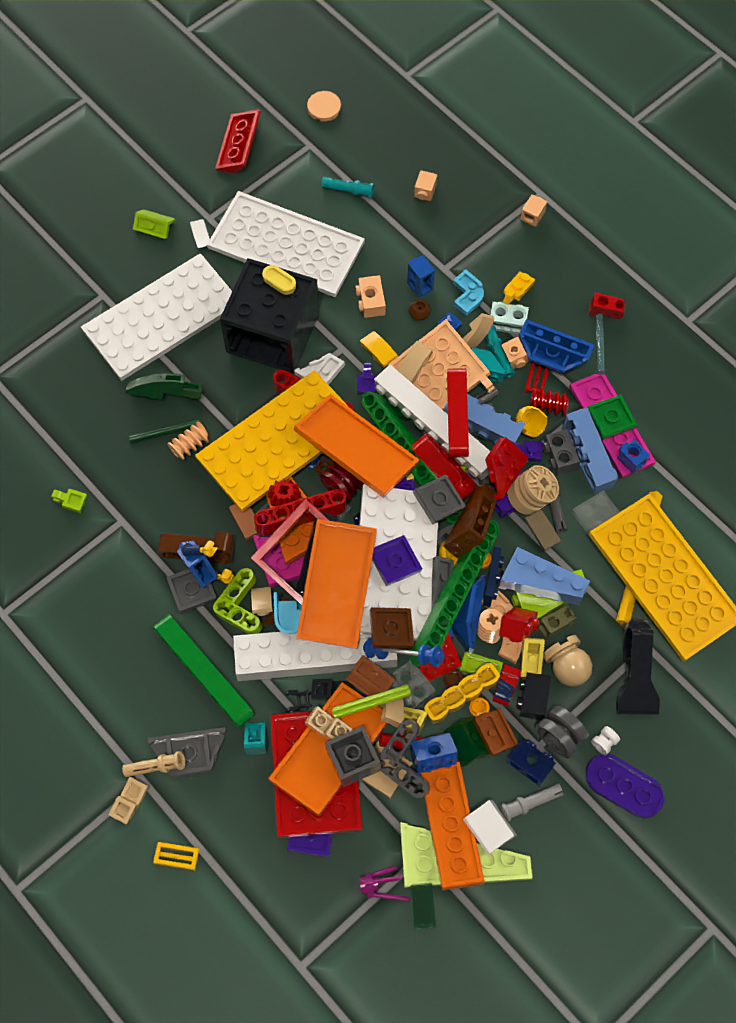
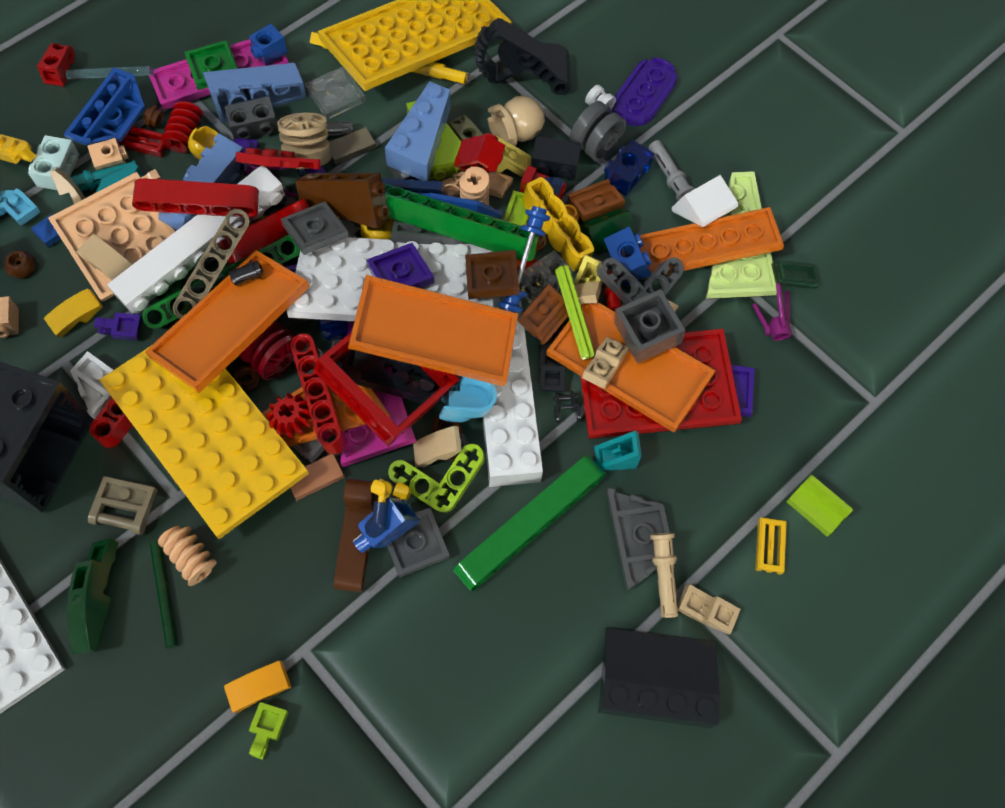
camera: 95 degrees left, 0 degrees up
(80, 758) = (660, 678): none -> black slope
(98, 492) = (257, 686): none -> light orange slope
(205, 897) = (819, 505): none -> lime panel
(233, 401) = (123, 496): none -> dark tan plate
(396, 456) = (246, 272): none -> black pin
(410, 430) = (212, 250): none -> dark tan beam
(558, 380) = (153, 116): none -> reddish brown plate

